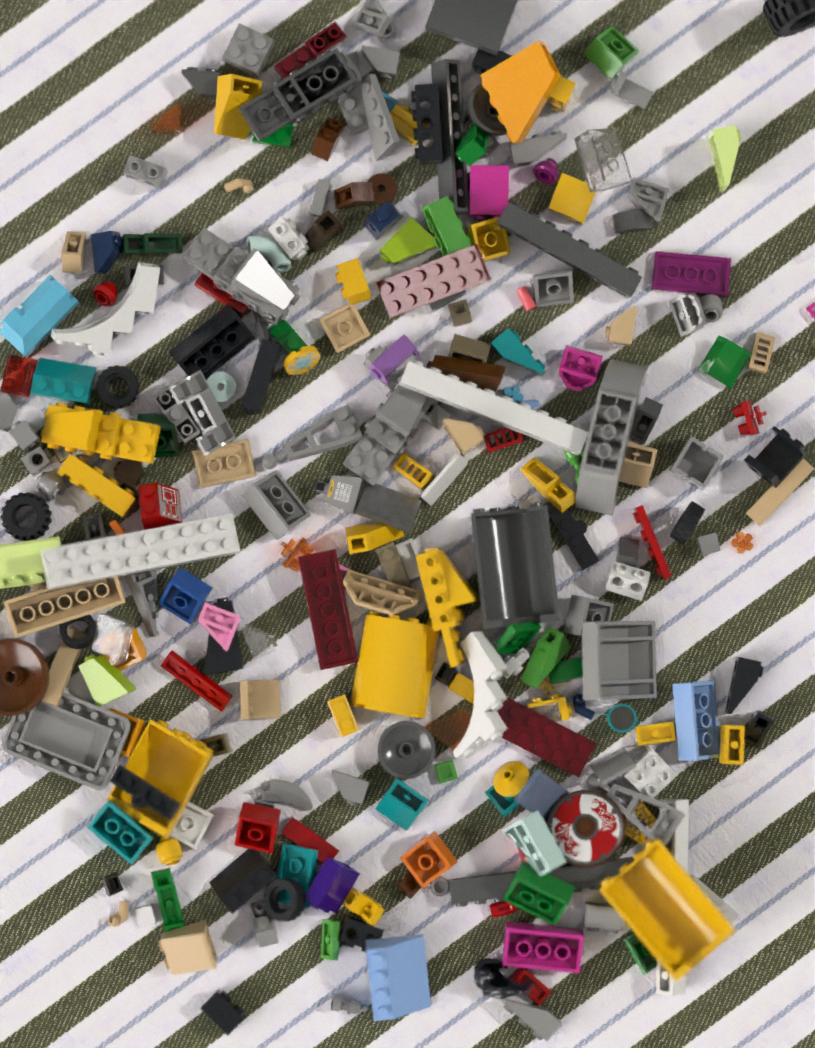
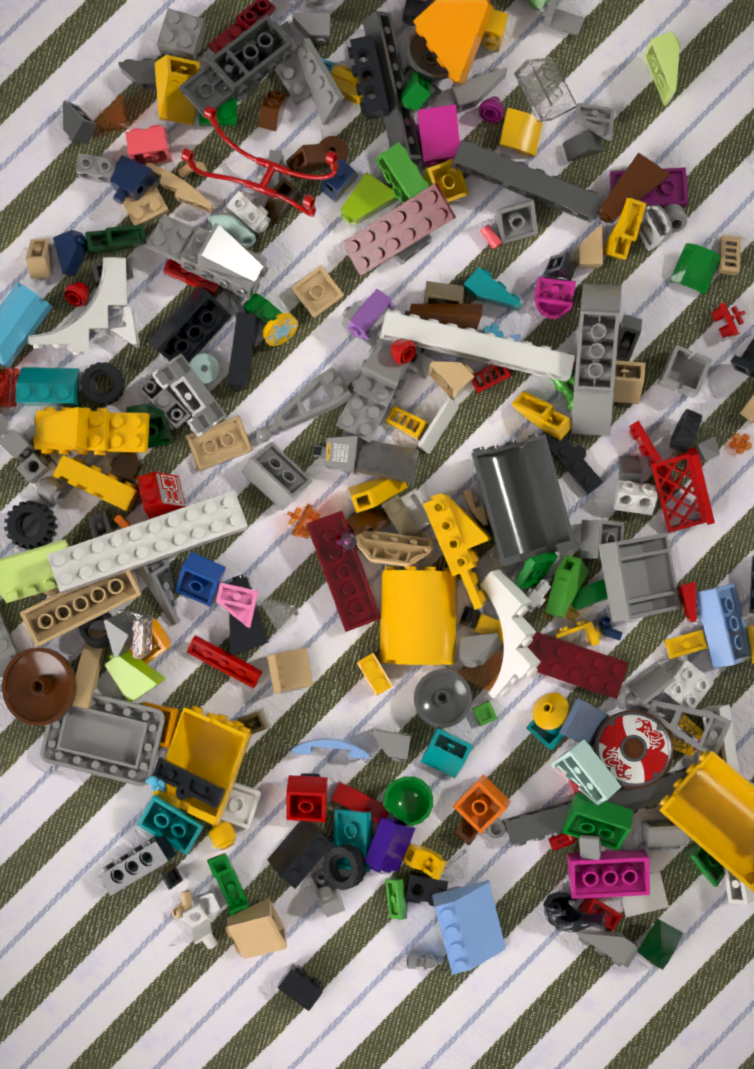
camera: 10 degrees left, 0 degrees up
(57, 879) = (161, 853): none -> brick
(99, 638) = (119, 635): none -> slope
(112, 789) = (156, 784): none -> medium azure plant
(131, 123) = (77, 123): none -> dark grey slope
(134, 938) = (200, 927): none -> white bracket
(152, 340) = (130, 331): none -> white slope
(176, 189) = (131, 179): none -> dark blue torso
(185, 211) = (147, 207): none -> tan plate
(199, 158) = (149, 145): none -> coral brick
(227, 207) = (184, 192): none -> tan slope
(264, 778) = (306, 747): none -> light blue slope
(284, 792) = (328, 759): light grey piece -> none
(336, 580) = (348, 541): none -> clear piece
(348, 247) = (309, 201): none -> red bar
(353, 281) = (319, 245): yellow brick -> none
(357, 844) = (408, 800): none -> green cylinder
(359, 562) = (371, 519): none -> reddish brown slope
(419, 402) = (403, 351): none -> red cone
(449, 706) = (478, 648): none -> light grey slope
(460, 313) = (428, 261): dark tan slope -> none
(470, 572) = (478, 513): none -> tan slope
(527, 917) = (590, 847): none -> light grey slope
(574, 982) = (646, 903): none -> white sticker
(582, 1022) = (660, 944): none -> dark green slope
(591, 339) = (561, 265): none -> black slope
(621, 718) = (649, 634): pearl dark grey piece -> none
(659, 313) = (626, 230): none -> yellow slope
(665, 687) = (688, 597): none -> red slope
(675, 270) = (636, 183): none -> reddish brown slope
(690, 576) = (698, 484): none -> red fence

